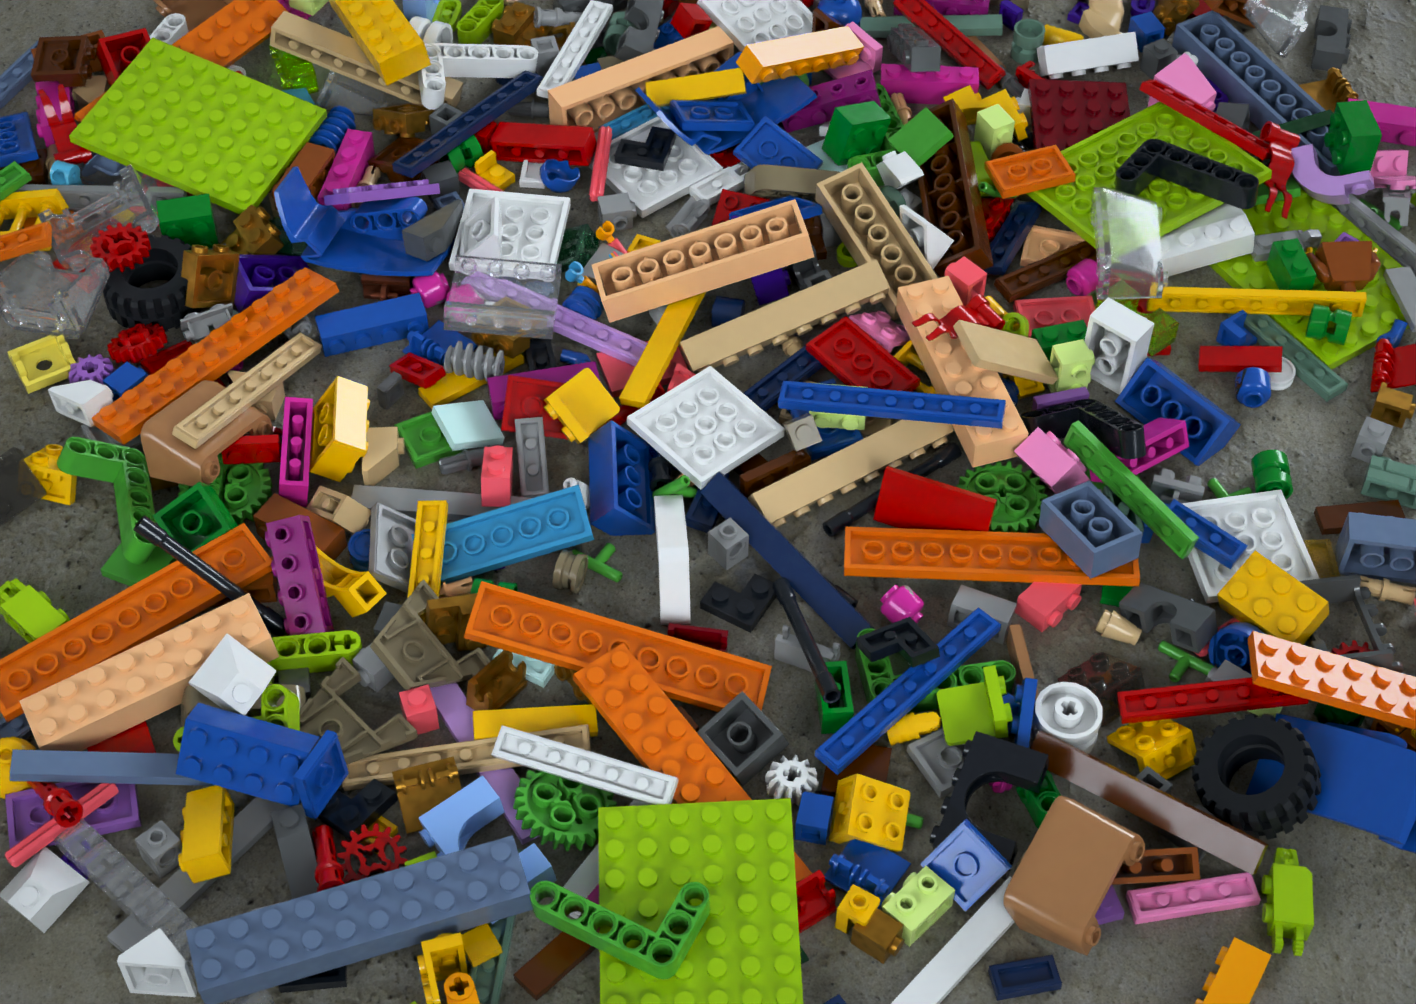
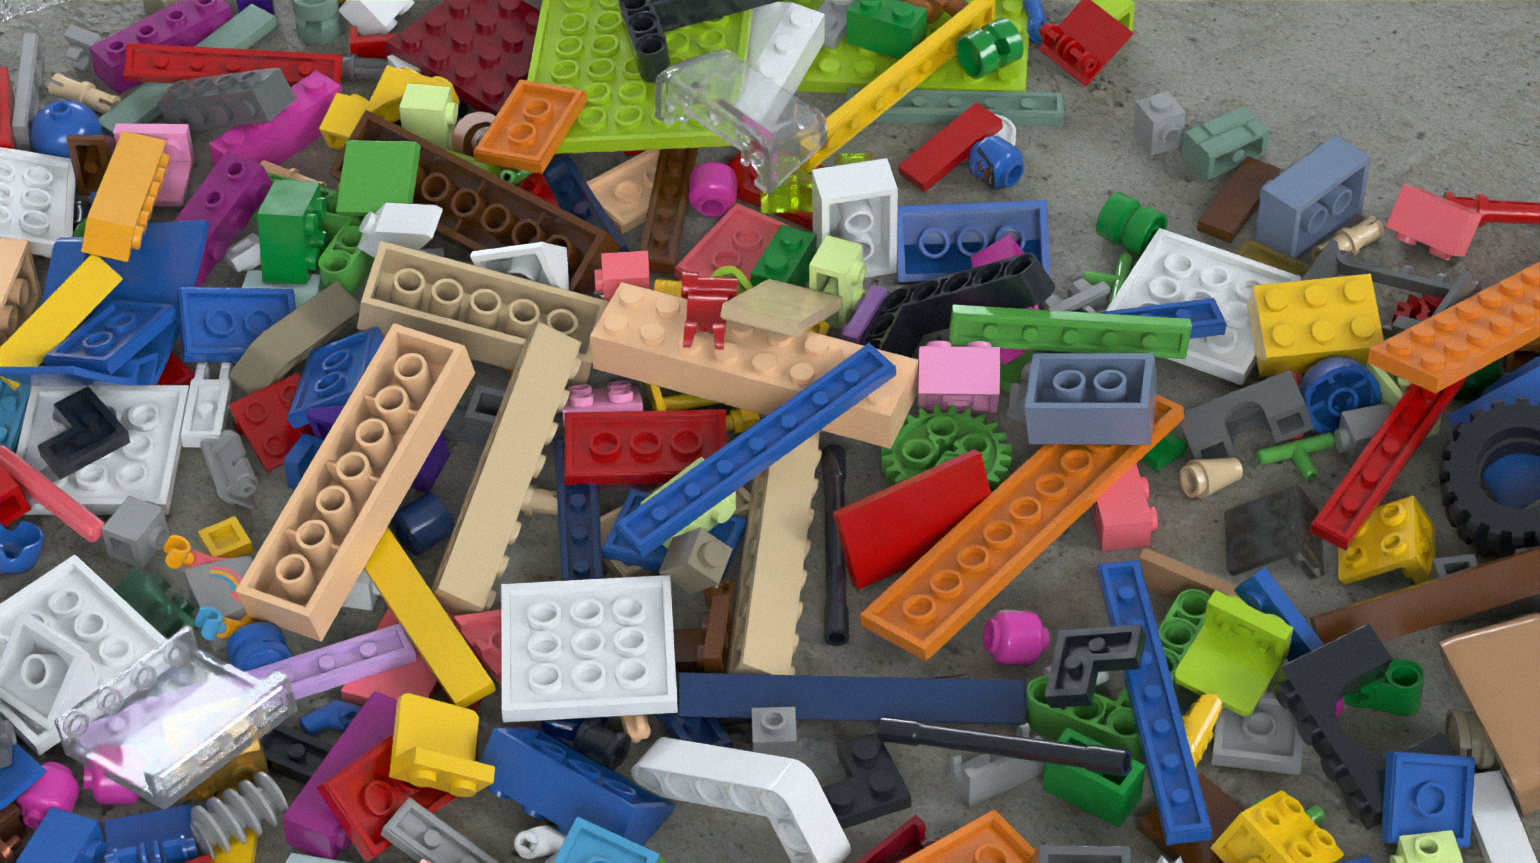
camera: 50 degrees left, 5 degrees down
(677, 487) = (654, 729): bright green piece -> none
(970, 599) = (1075, 578): light grey hinge -> none
(1068, 714) = (1310, 577): white wheel -> none
(1233, 333) = (911, 131): blue panel -> none
(1392, 406) = (1126, 80): pearl gold brick -> none

